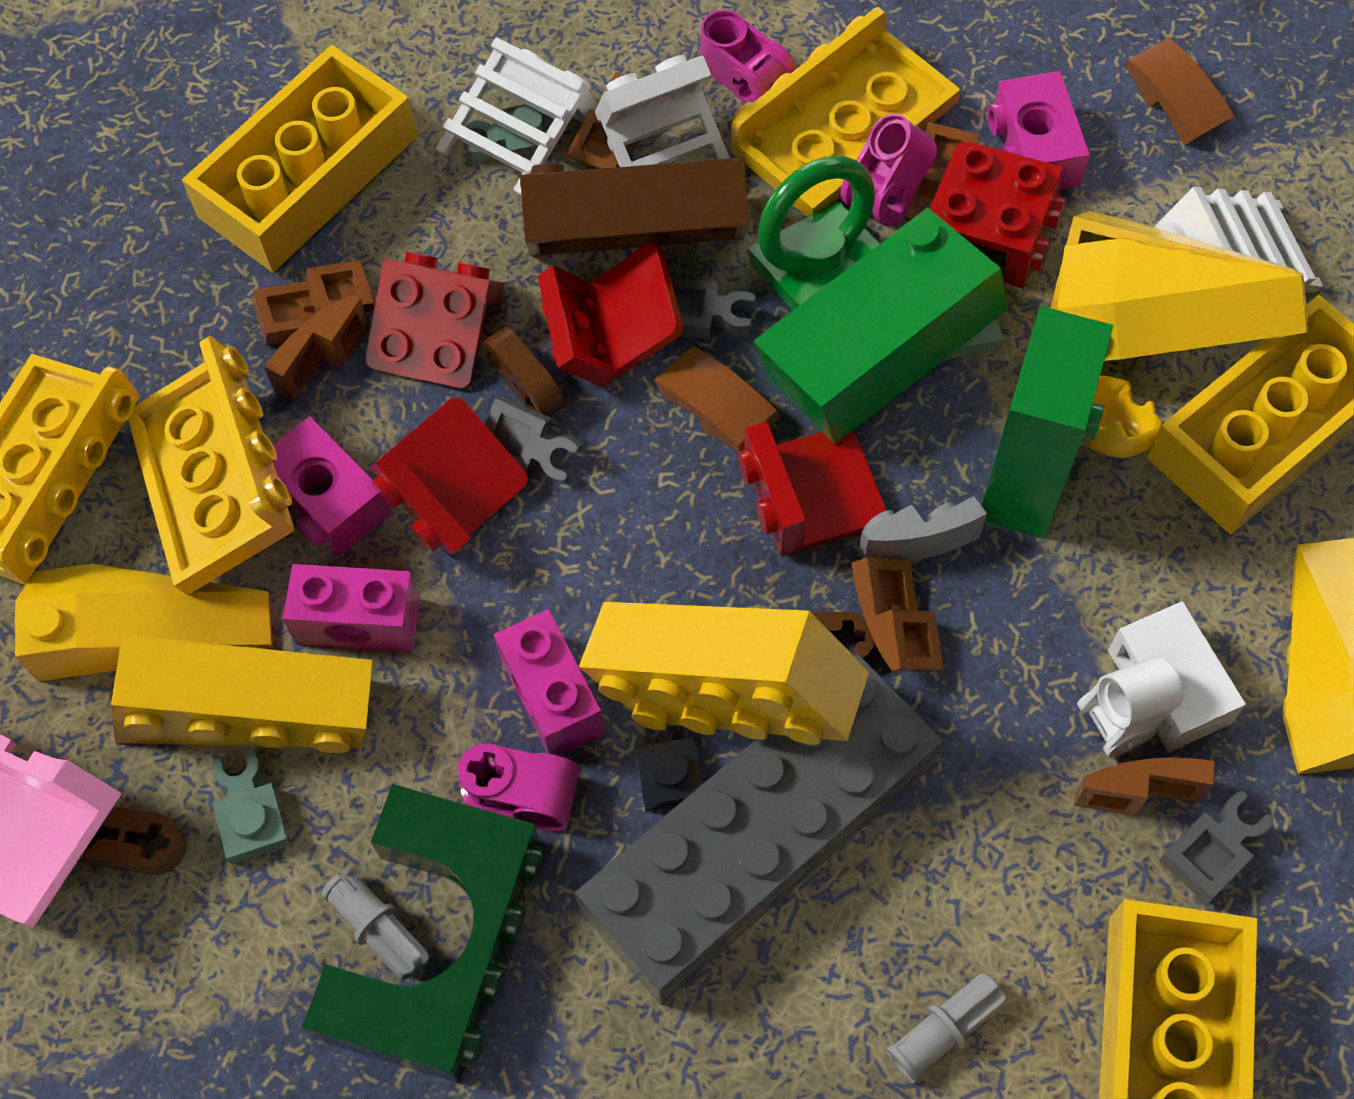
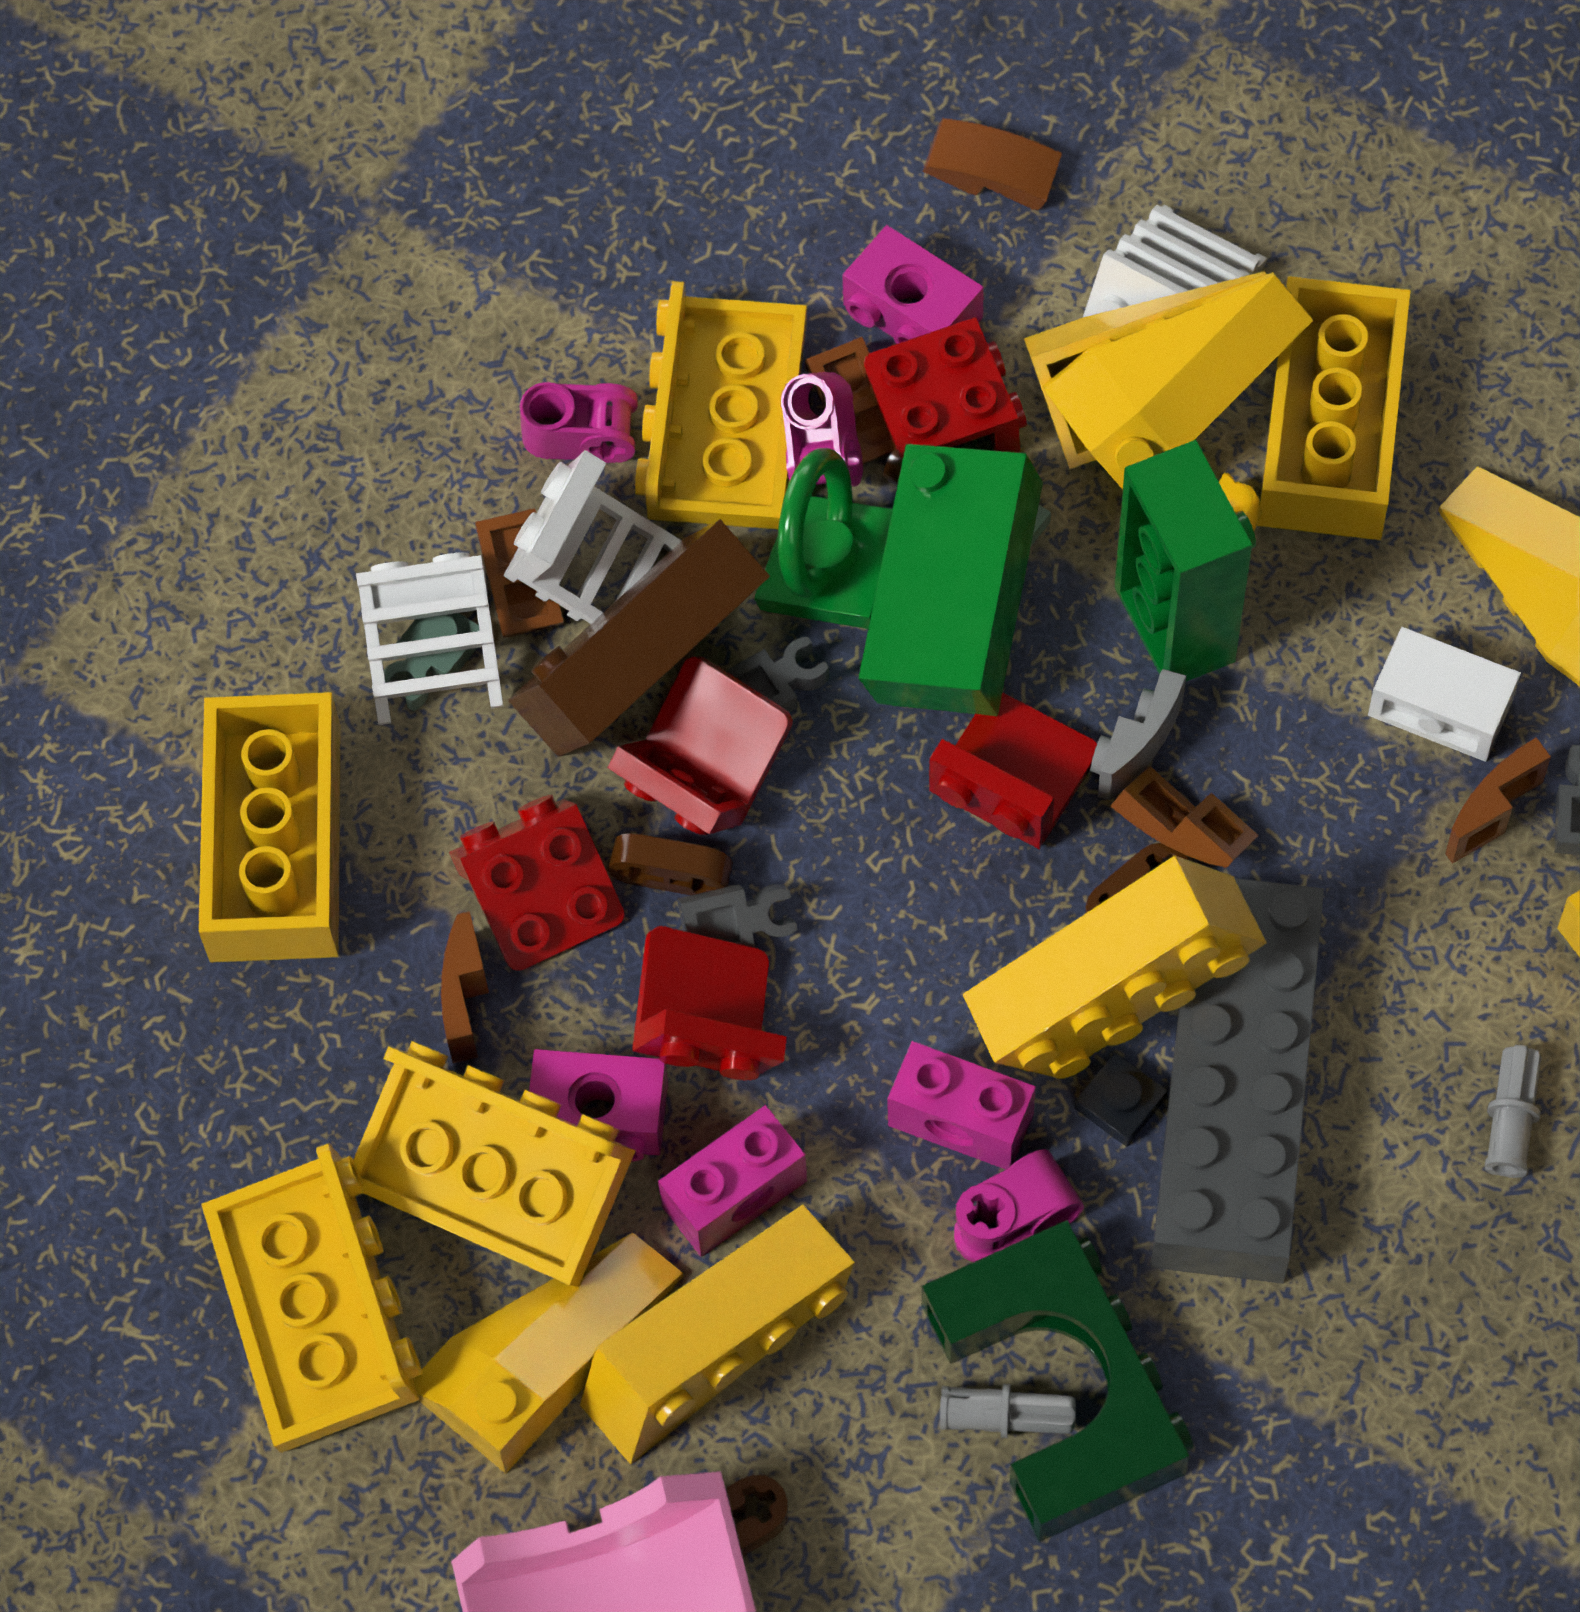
camera: 40 degrees left, 0 degrees up
(251, 815) = (811, 1423): sand green plate -> none
(288, 306) = (405, 956): dark orange slope -> none
(715, 396) = (860, 752): dark orange slope -> none
(1133, 703) = (1436, 740): white piece -> none

